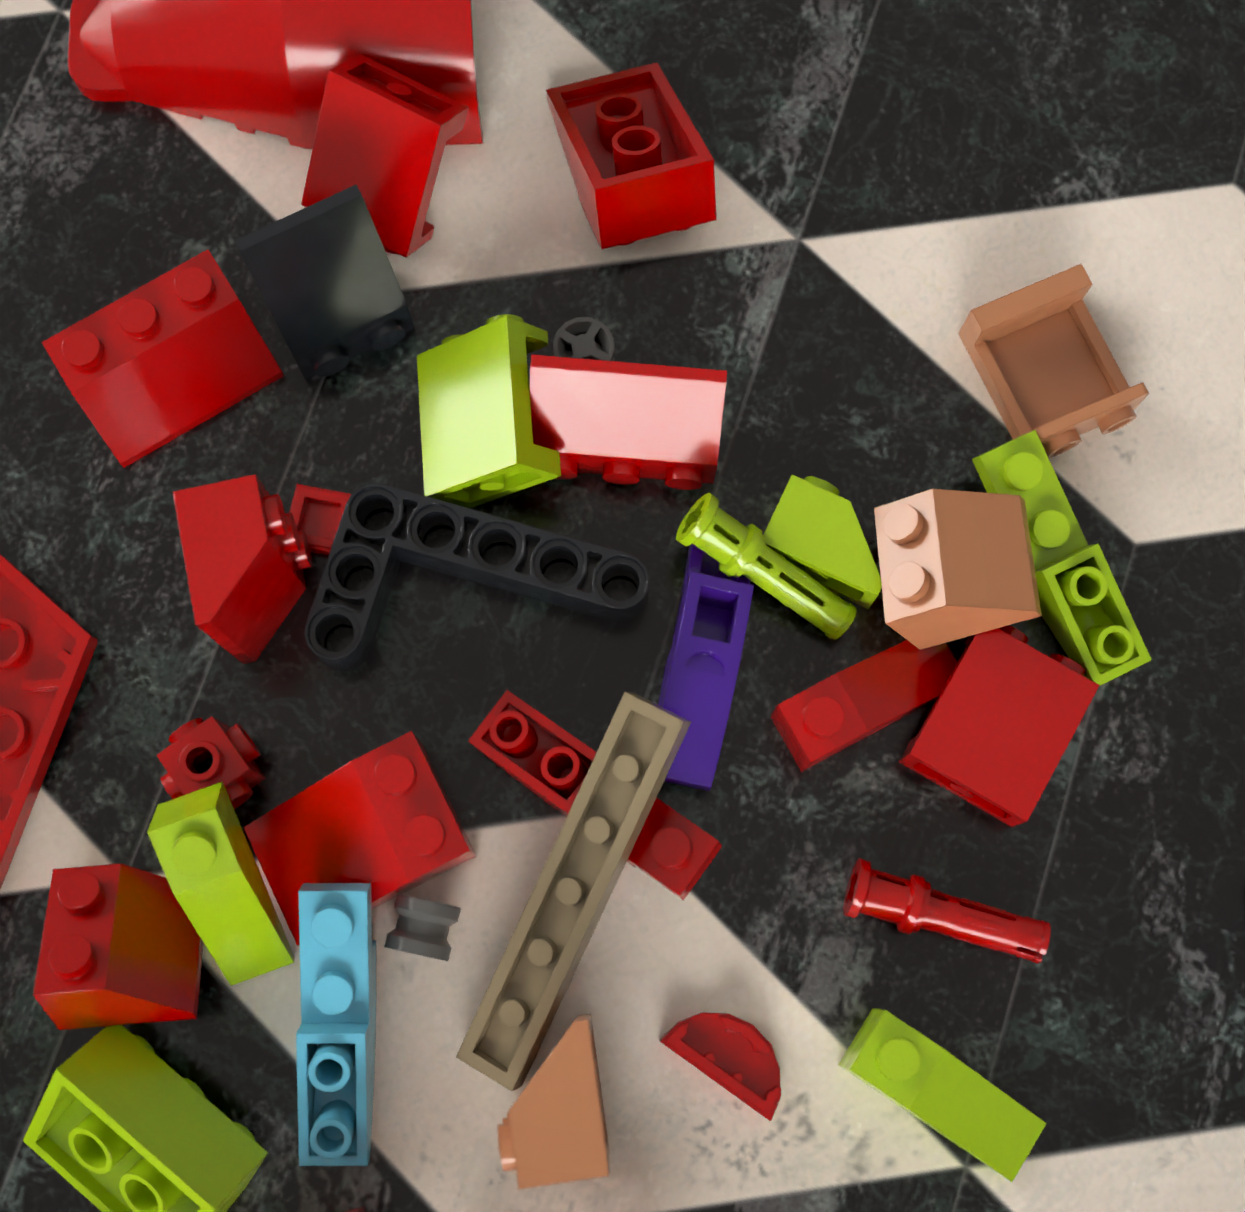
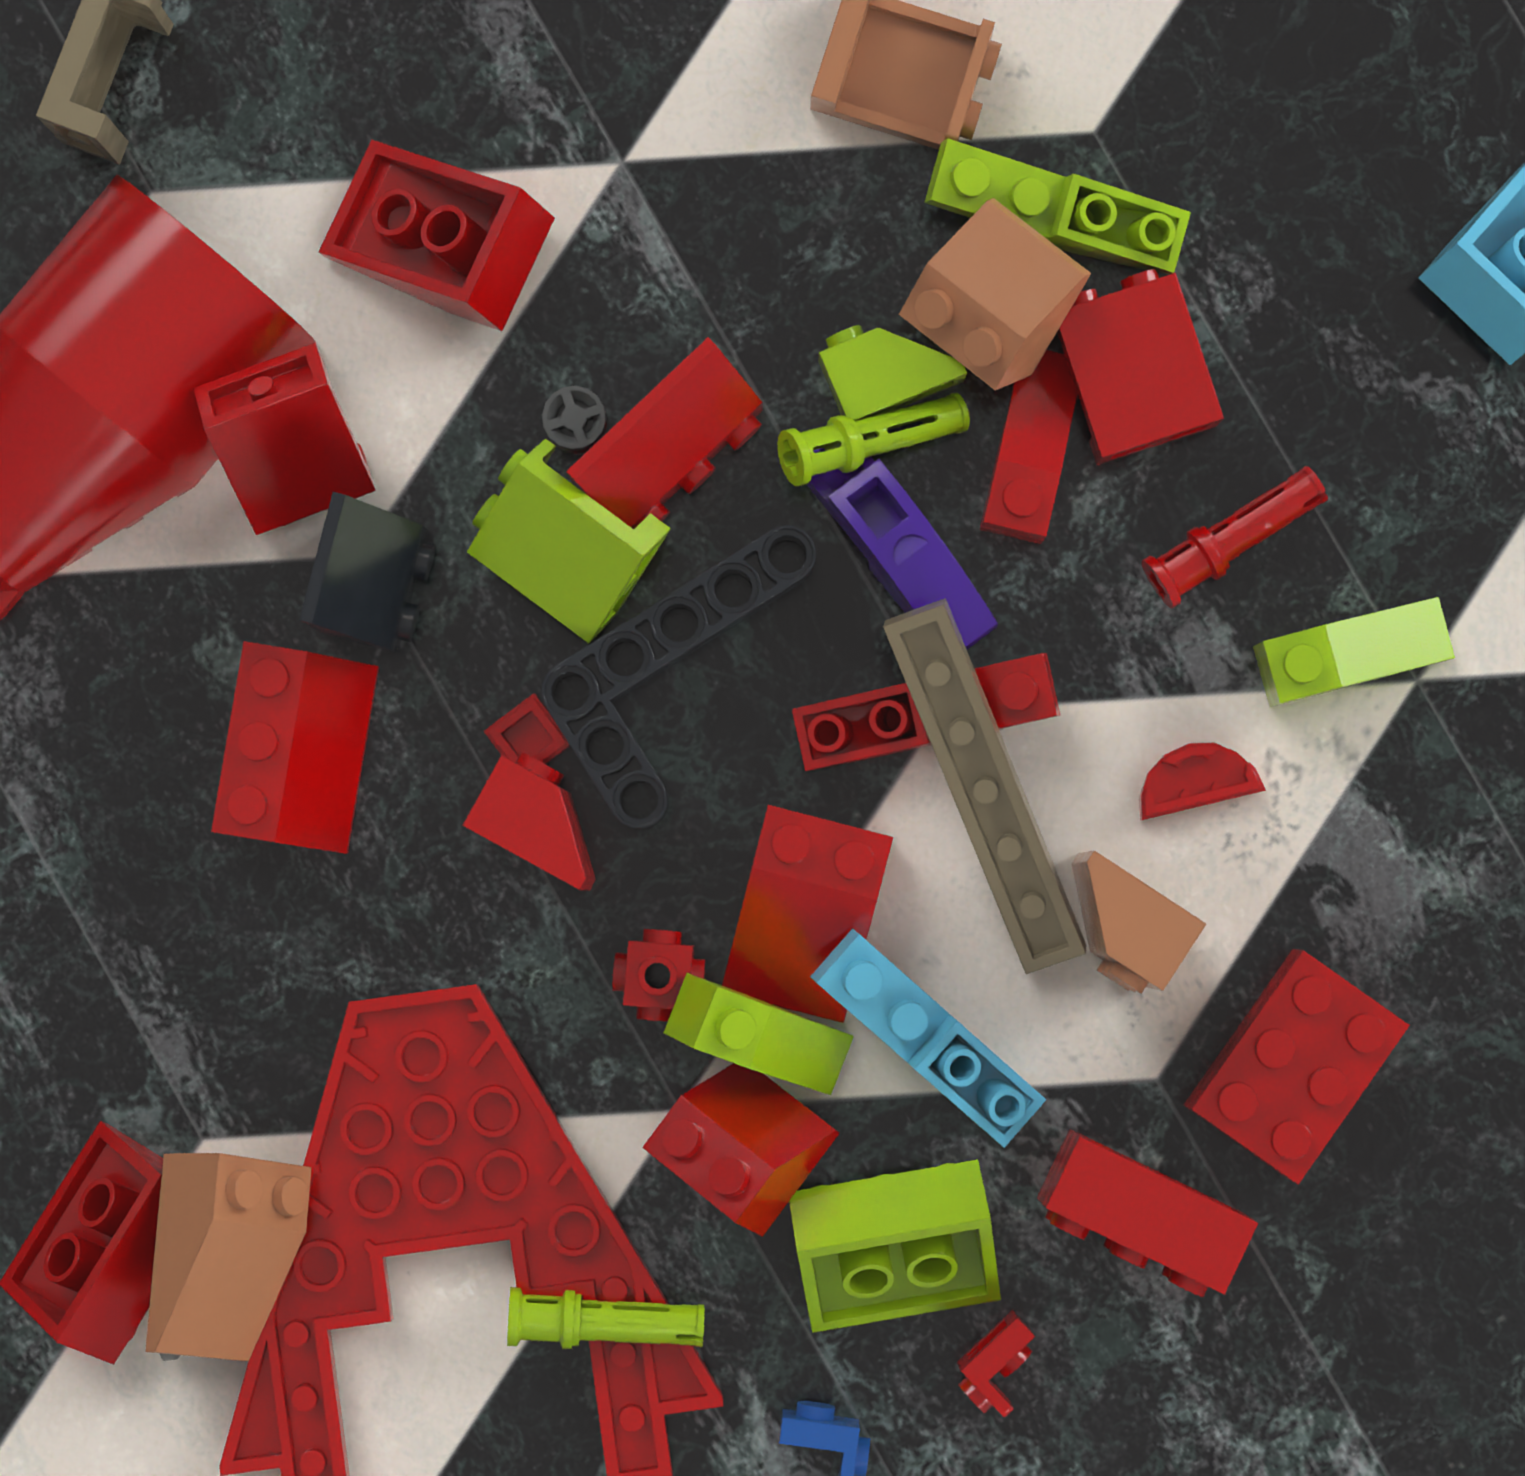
camera: 40 degrees left, 10 degrees up
(422, 927) = (913, 920): dark grey wheel -> none

